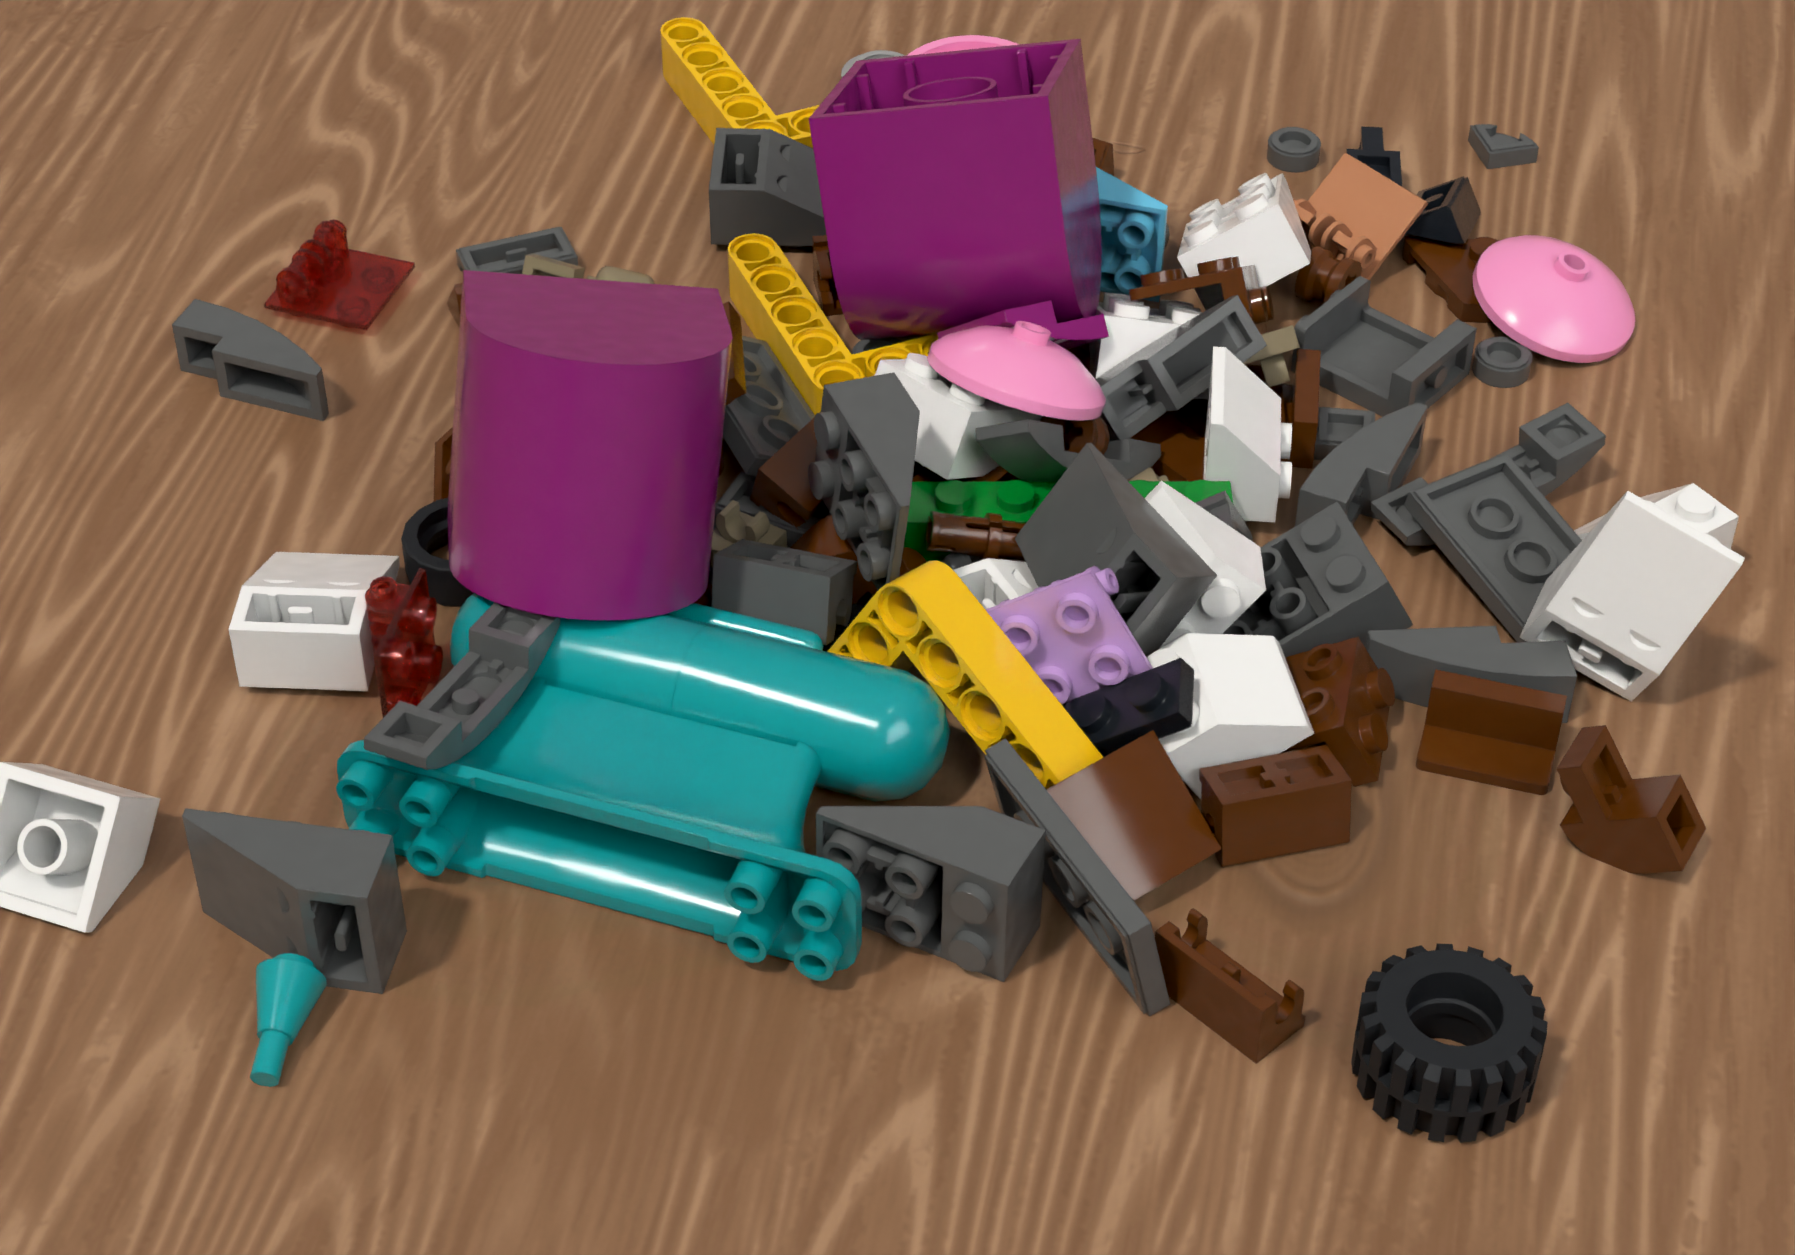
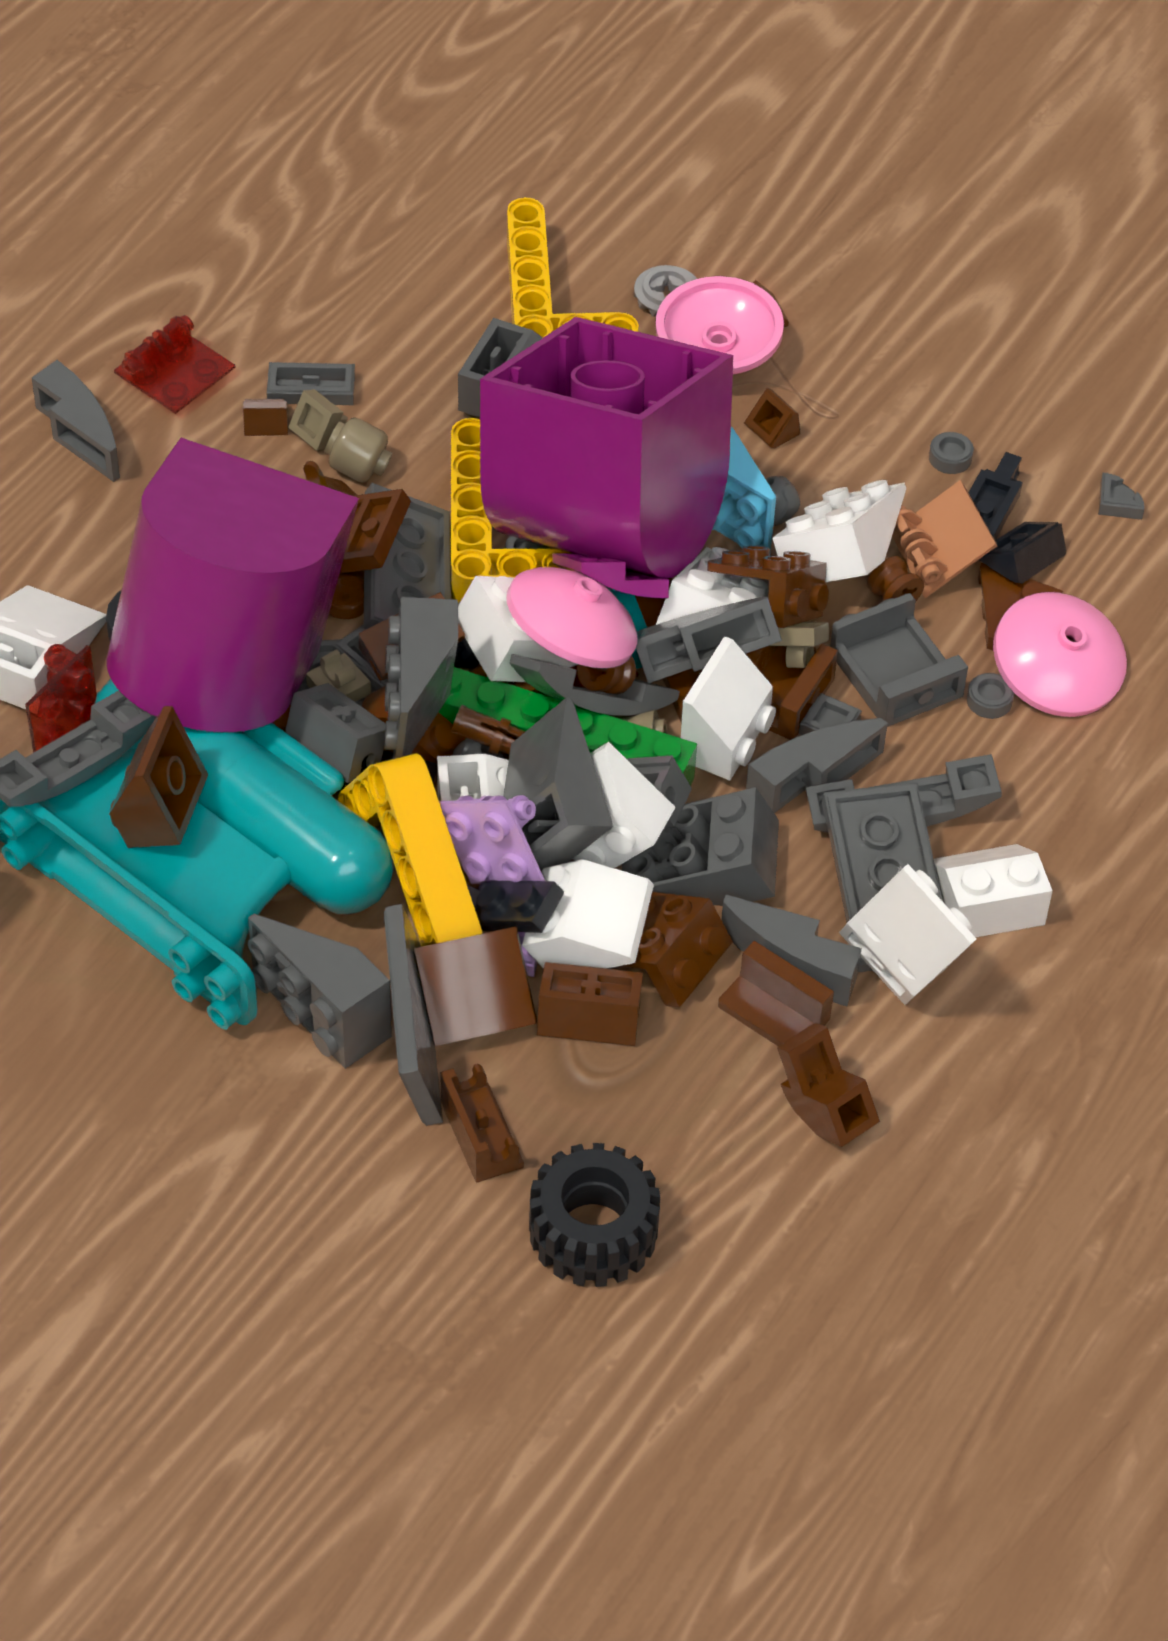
camera: 20 degrees right, 10 degrees up
(610, 692) = (159, 786): none -> reddish brown slope

